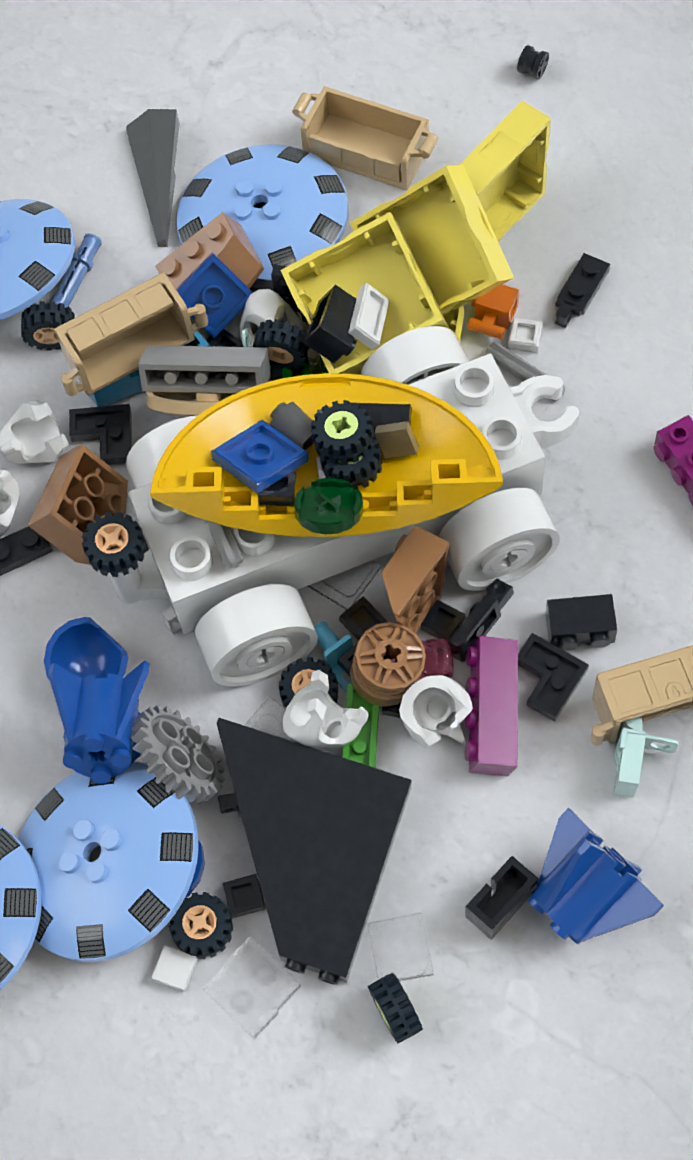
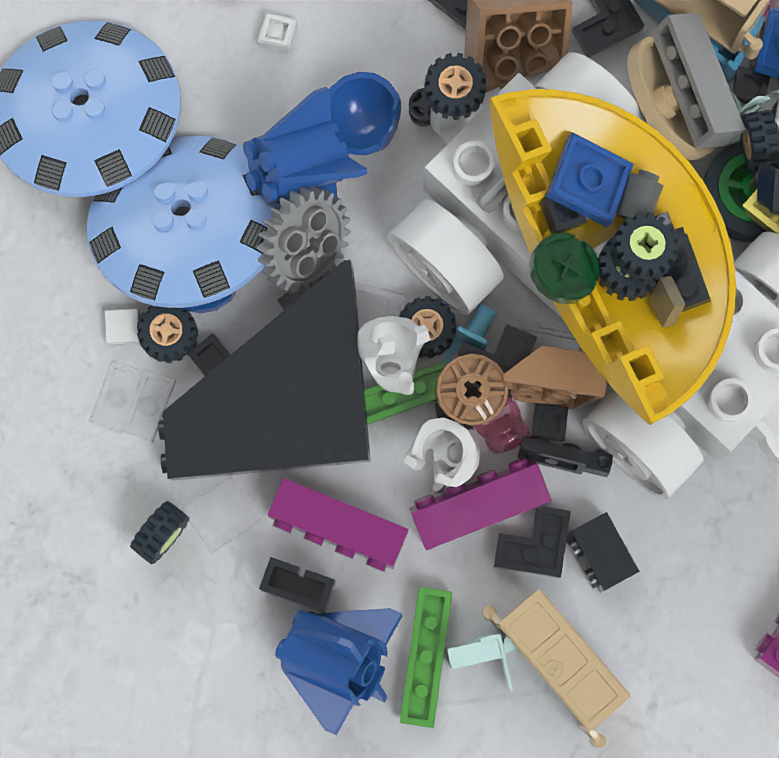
camera: 60 degrees right, 15 degrees up
(101, 604) = (417, 101): none -> black wheel
(458, 838) = (338, 524): none -> magenta brick
(615, 812) = (426, 657): none -> bright green plate

